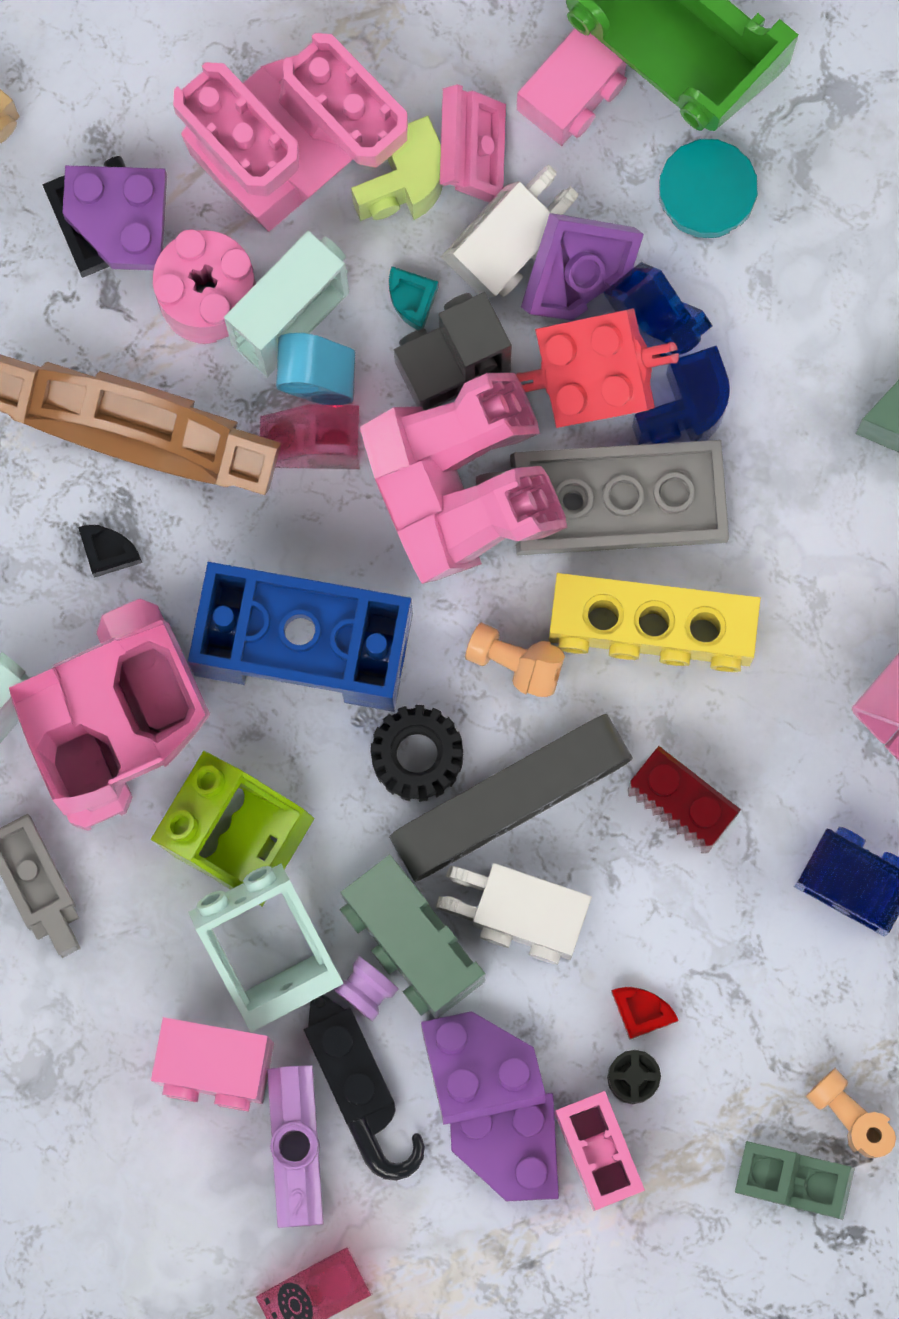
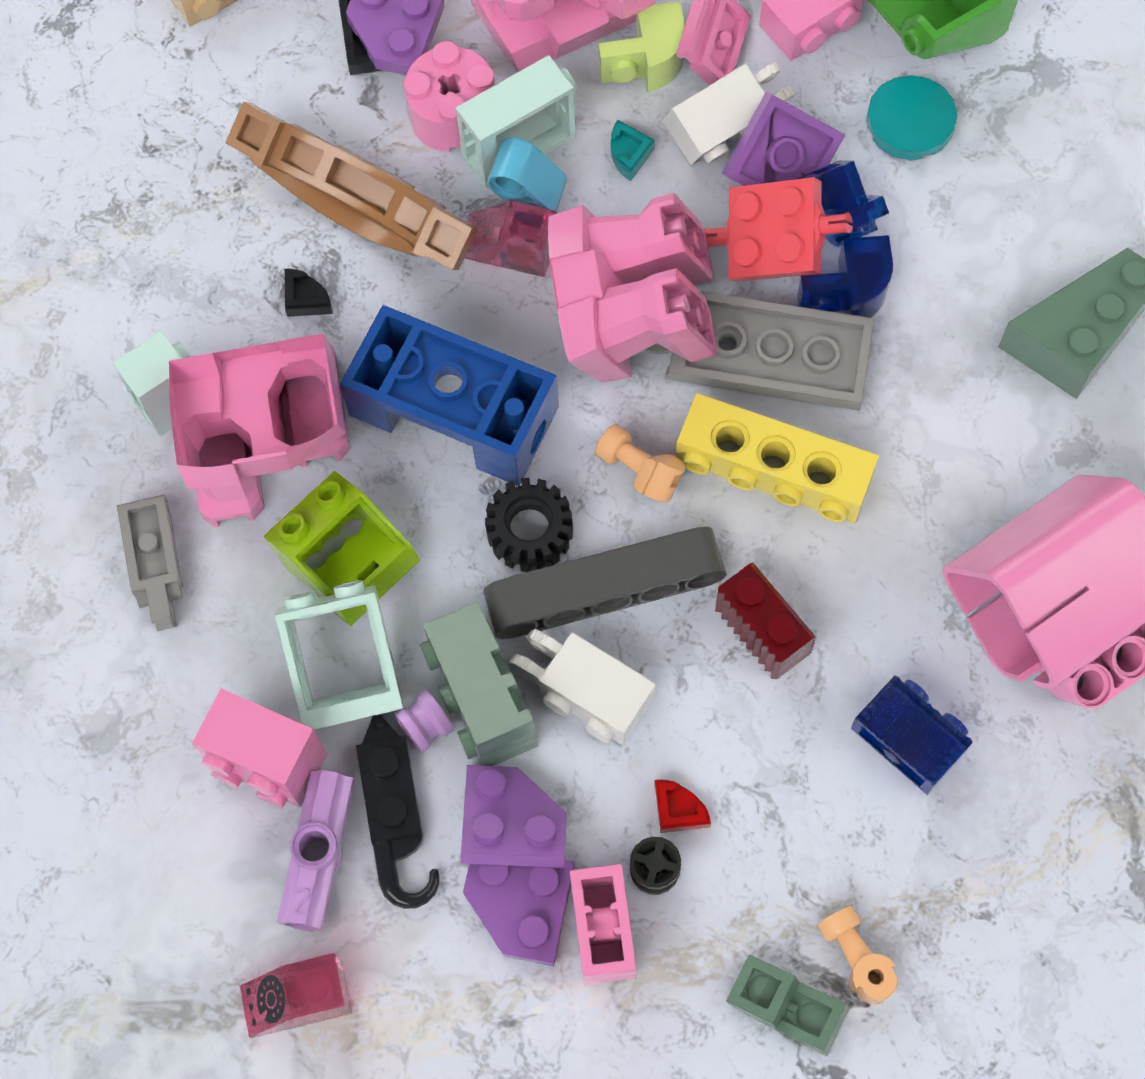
camera: 15 degrees right, 10 degrees down
(460, 350) = (669, 169): dark grey brick -> none

